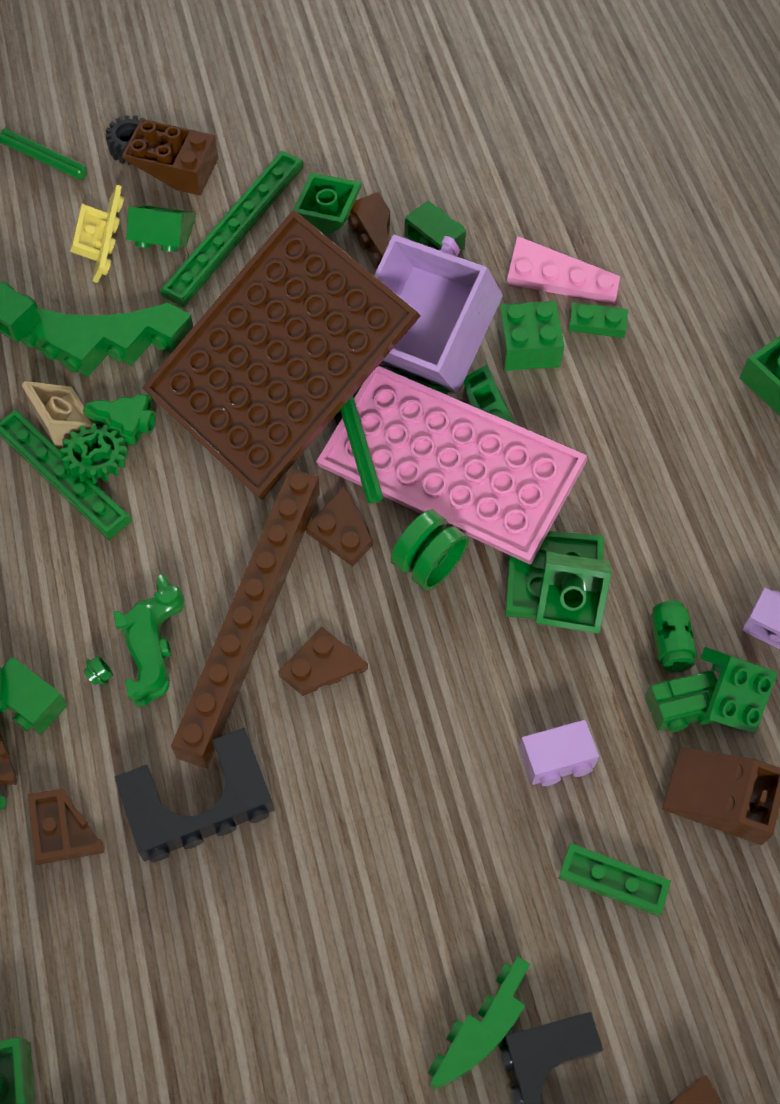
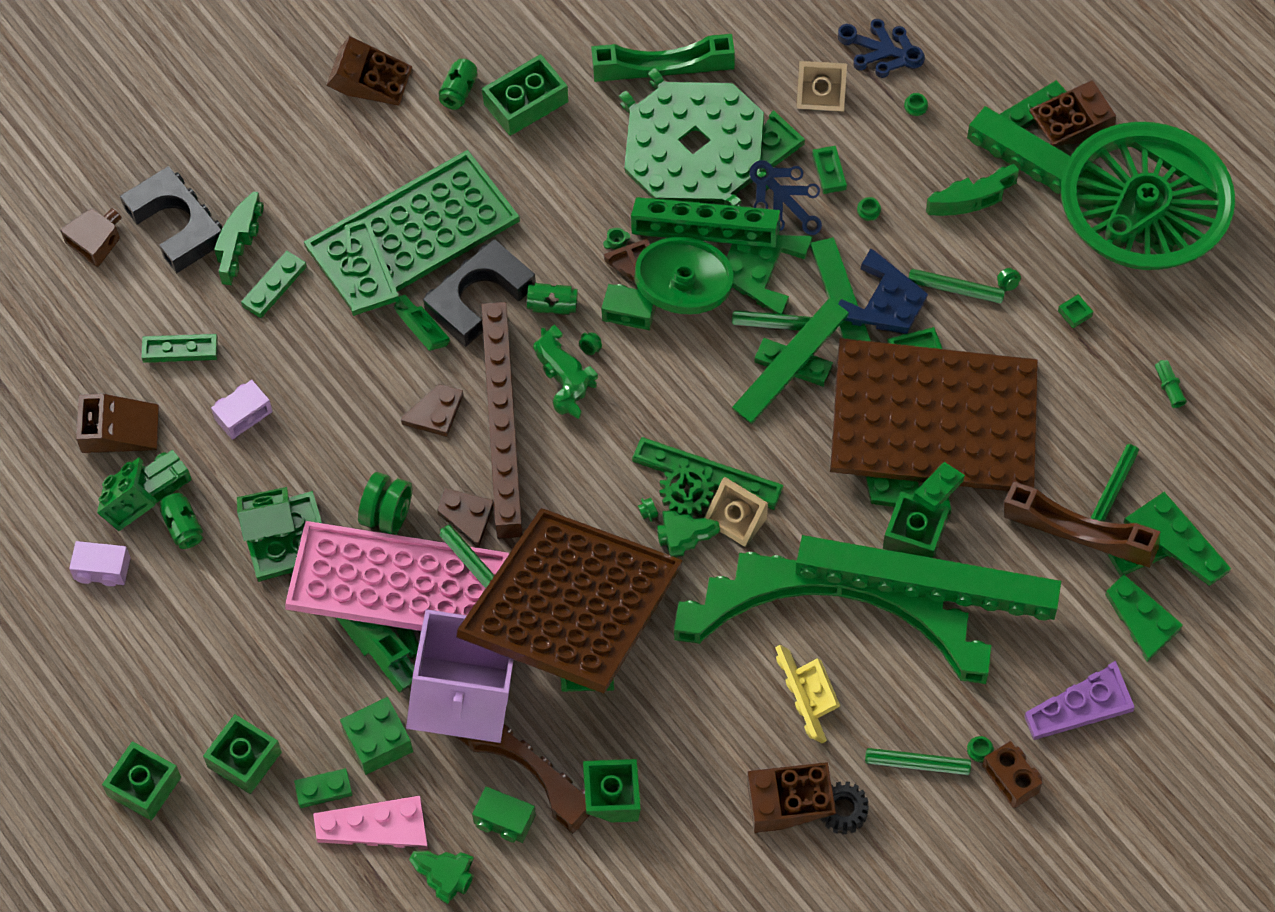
camera: 160 degrees right, 0 degrees up
(59, 829) = (557, 243): reddish brown wing -> none
(97, 737) = (539, 292): none -> green piece
(146, 454) = (648, 509): none -> green plate
(159, 226) = (758, 722): green slope -> none
(231, 229) = (695, 758): green tile -> none
(236, 934) = (421, 224): none -> green plate
(289, 781) = (421, 324): none -> green hinge
(326, 872) = (368, 273): none -> wing
(455, 933) = (273, 284): none -> plate
(509, 209) = (444, 872): none -> green rock
(673, 361) = (242, 754): none -> green brick

